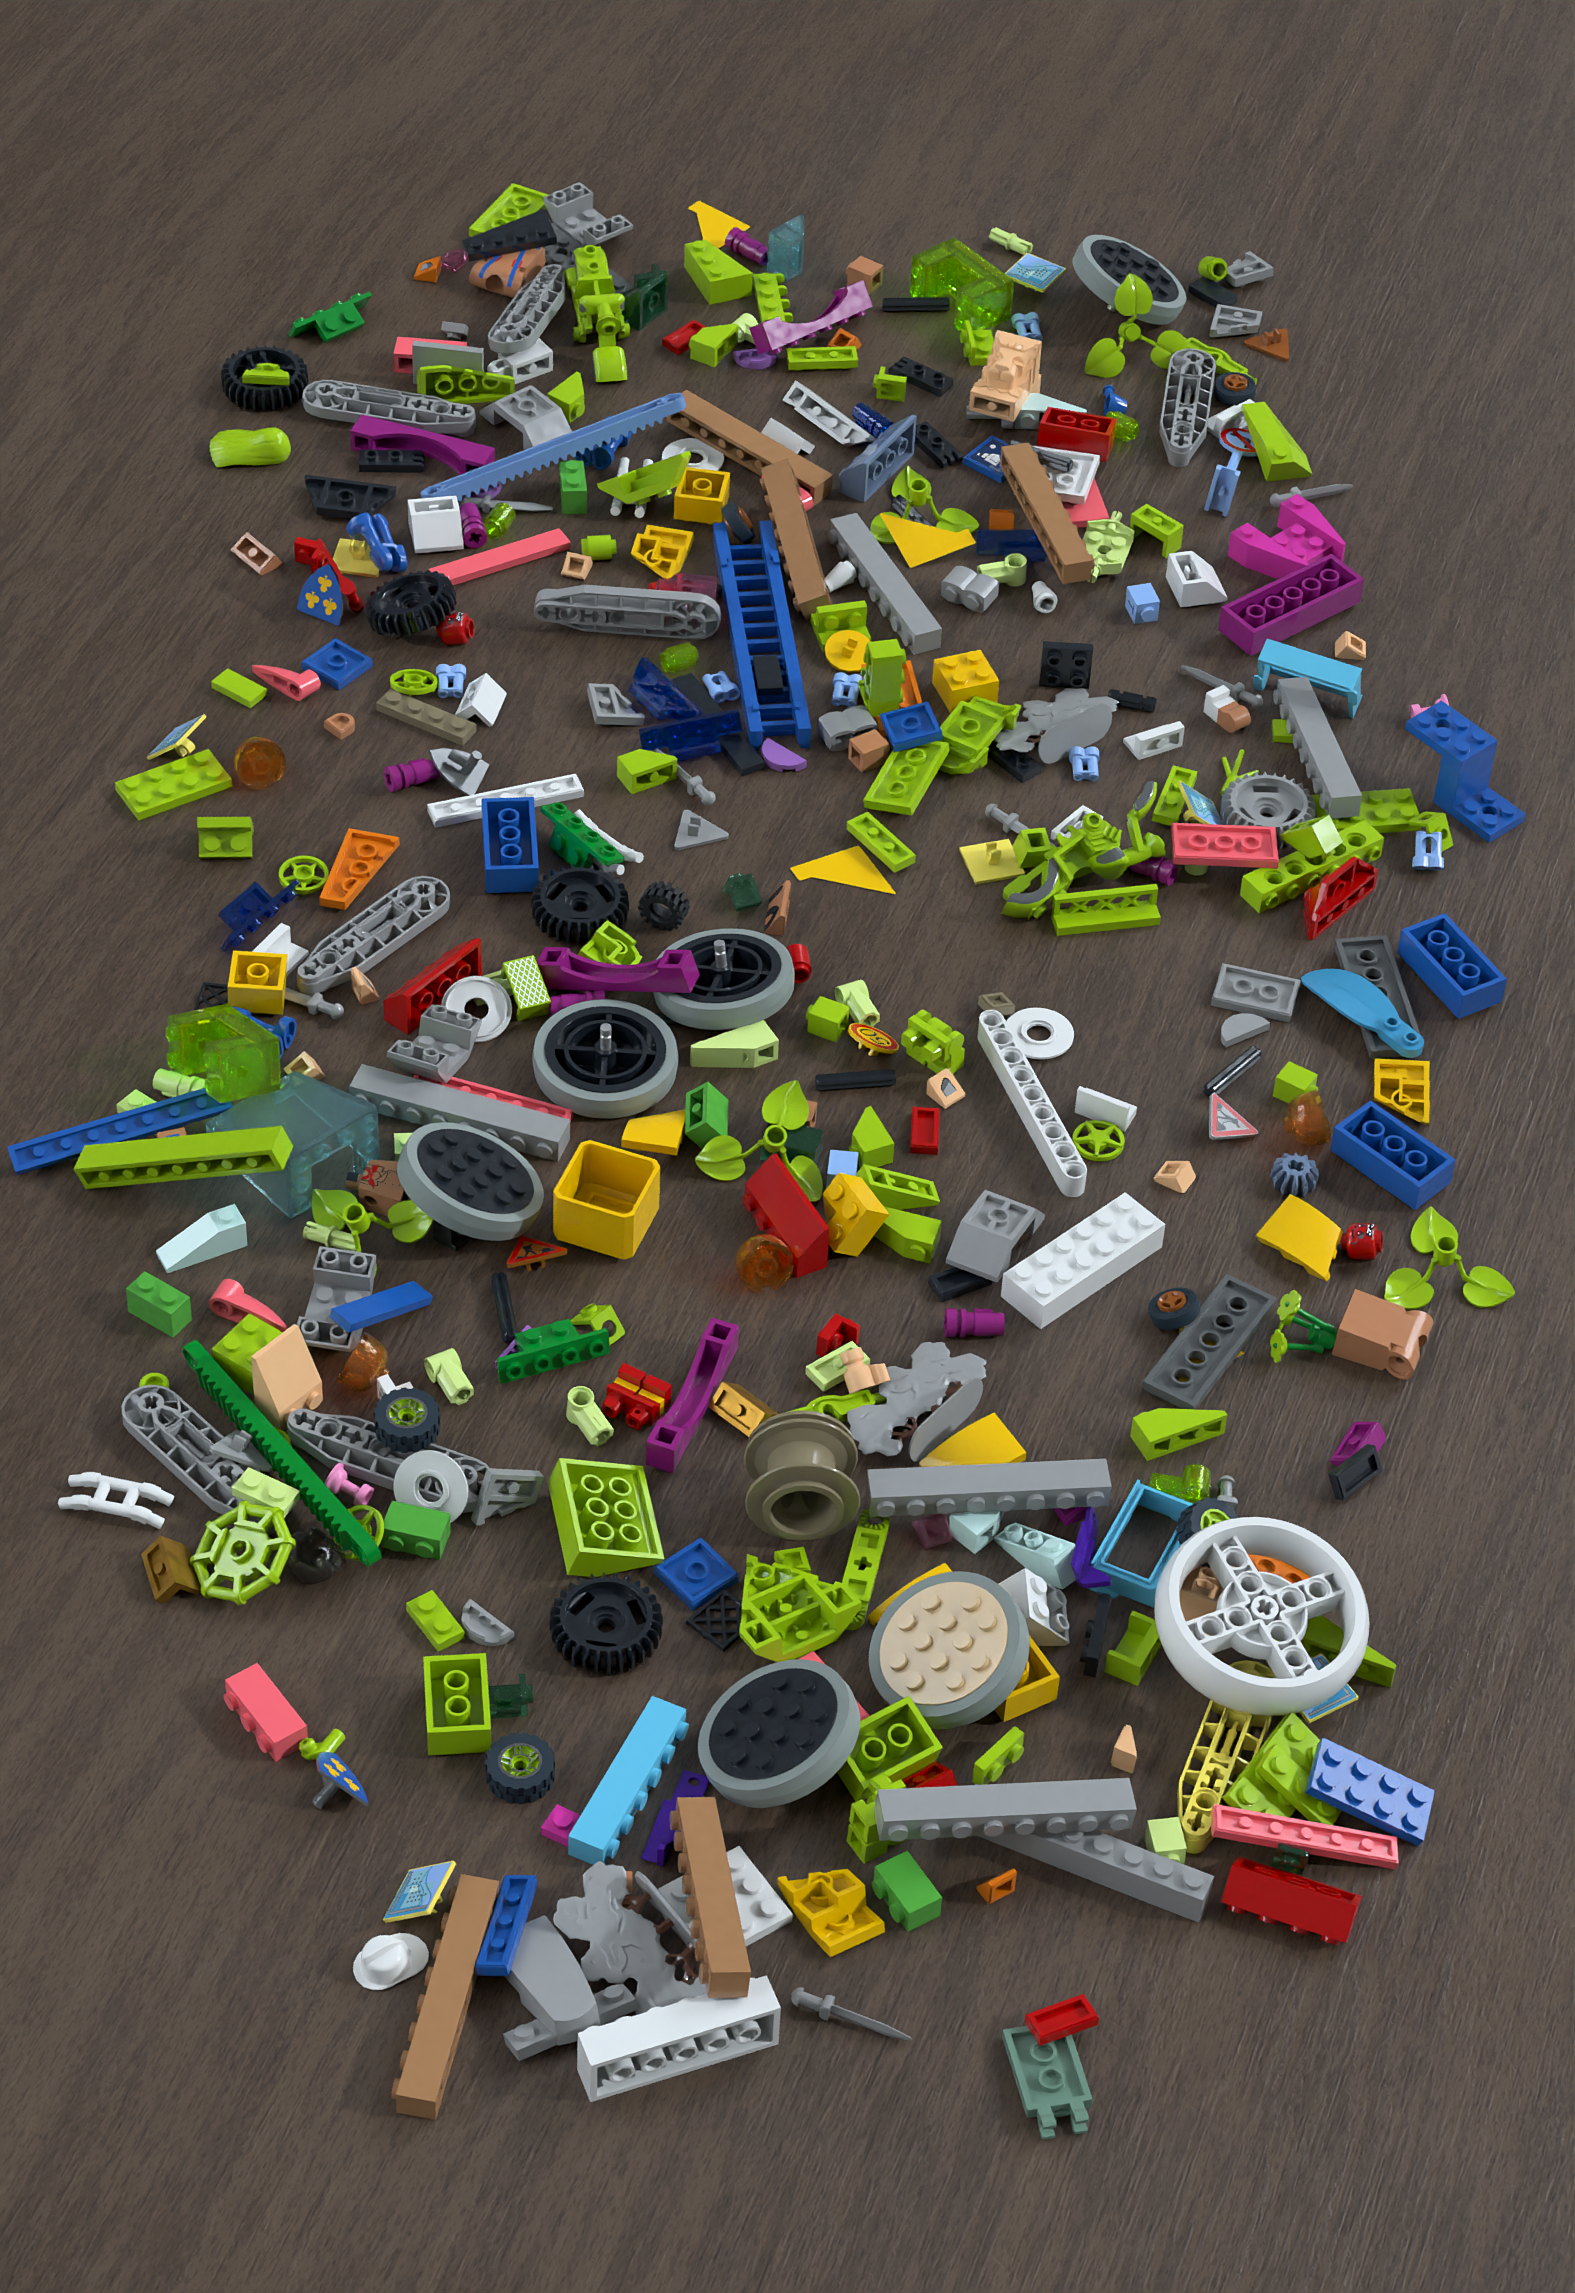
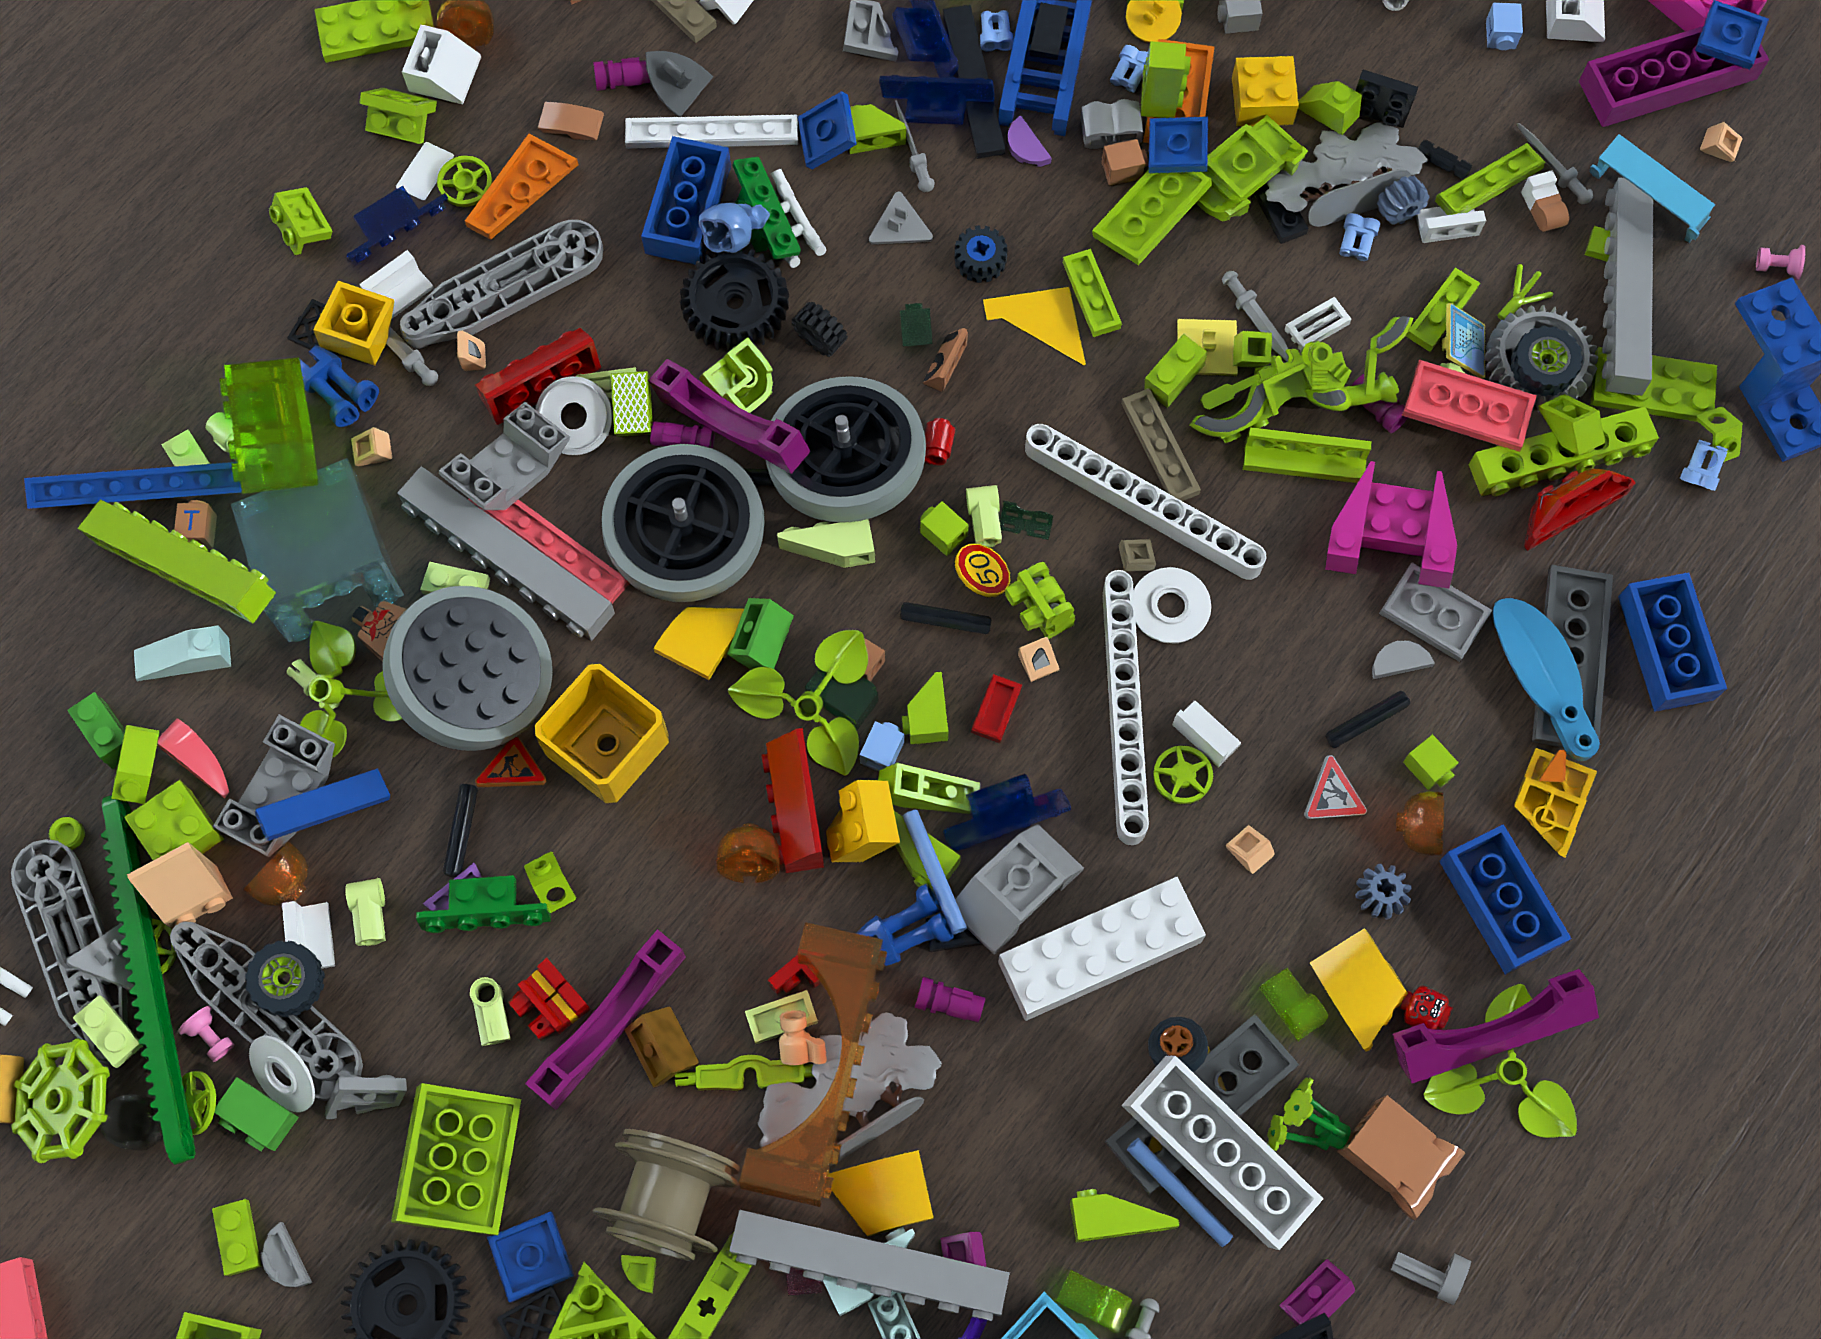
camera: 20 degrees right, 25 degrees up
(167, 928) = (299, 218): none -> lime bracket
(203, 1312) = (135, 764): none -> lime slope
(250, 795) = (440, 65): none -> white slope
(265, 873) = (424, 170): none -> white sticker
(387, 812) = (570, 119): none -> nougat slope
(560, 845) = (729, 225): none -> medium blue piece
(608, 775) = (827, 130): none -> blue tile
(775, 835) = (977, 264): none -> black wheel
(877, 995) = (1019, 522): none -> clear green piece
(897, 1292) = (925, 906): none -> blue piece
(905, 1423) = (801, 1160): none -> clear orange arch
(925, 1232) = (934, 872): none -> medium blue piece
(962, 1186) = (1004, 809): none -> clear blue bracket
(974, 875) = (1175, 370): none -> lime brick
(984, 930) = (1160, 445): none -> dark tan plate
(987, 967) = (1150, 514): none -> white beam
(1026, 679) = (1332, 105): none -> lime slope
(1111, 728) = (1403, 200): none -> sand blue gear
(1176, 705) = (1490, 181): none -> lime tile
(1201, 937) = (1397, 522): none -> dark pink wedge
(1218, 1398) = (1180, 1192): none -> medium blue piece
(1240, 1355) = (1222, 1152): none -> white brick
(1261, 1268) = (1297, 1009): none -> clear neon green plate
(1273, 802) = (1562, 356): none -> black wheel
(1327, 567) = (1731, 34): none -> blue tile
(1396, 1062) = (1556, 768): none -> orange slope
(1456, 1410) = (1447, 1284): none -> light grey piece
(1468, 1202) = (1560, 1006): none -> magenta arch

